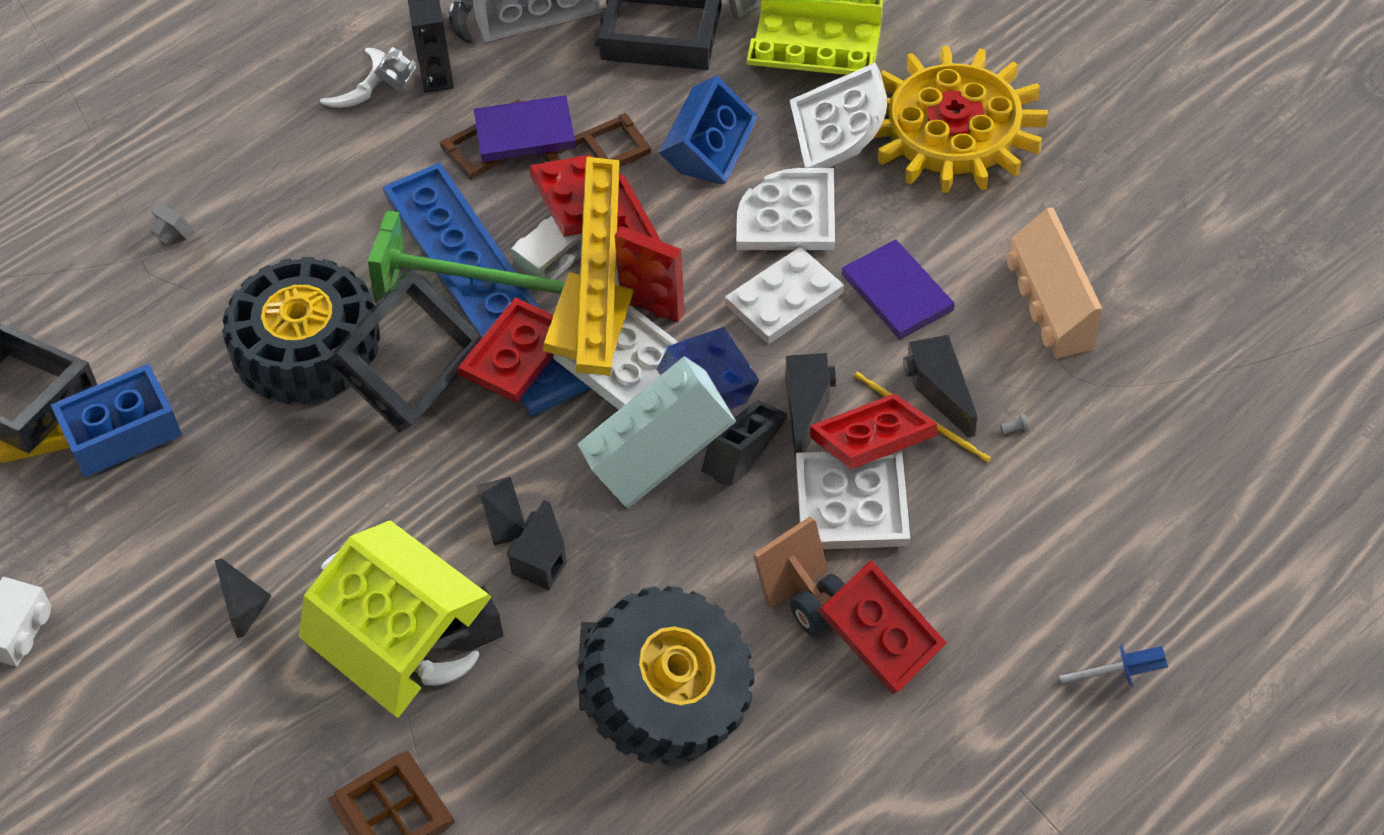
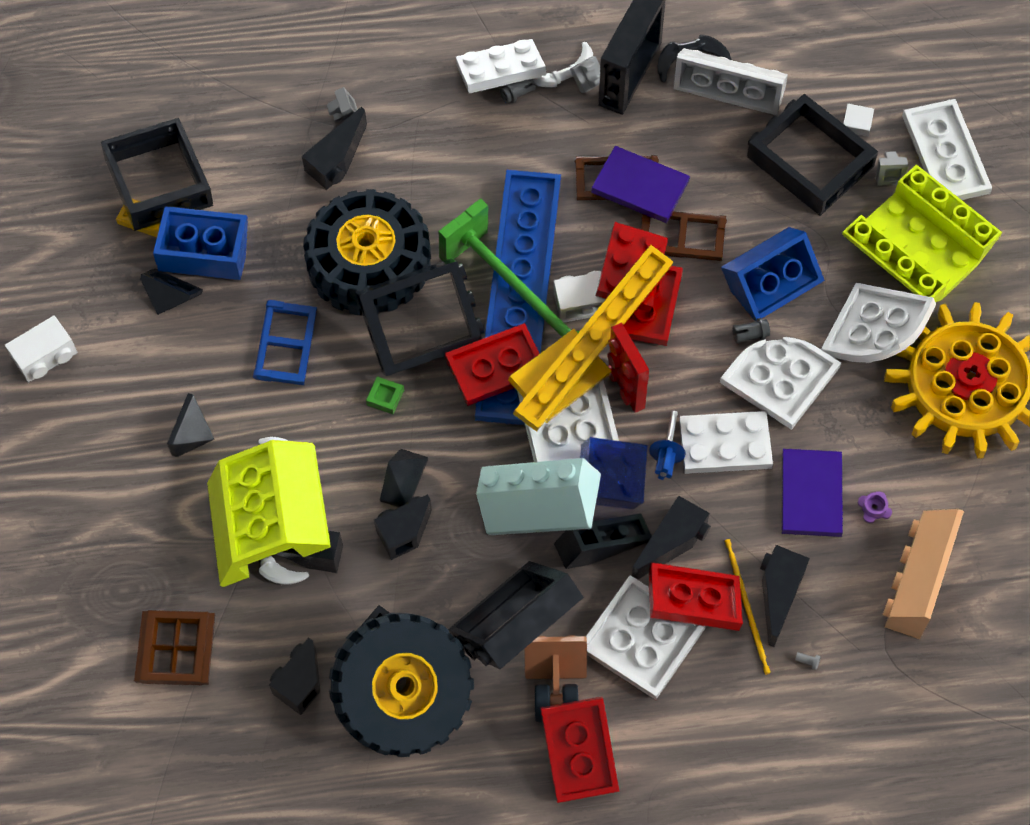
camera: 35 degrees right, 10 degrees up
(111, 490) = (166, 290): none -> black slope
(190, 272) = (332, 156): none -> black slope
(255, 472) = (305, 345): none -> blue window
(302, 105) = (500, 65): none -> white plate
(330, 123) = (513, 91): none -> dark grey pin
(421, 448) = (385, 395): none -> bright green tile
(550, 752) = (298, 680): none -> black slope
(735, 185) = (753, 330): none -> dark grey pin
(742, 329) = (667, 451): none -> blue piece
(753, 498) = (556, 598): none -> black window
(963, 266) = (878, 499): none -> medium lavender plate

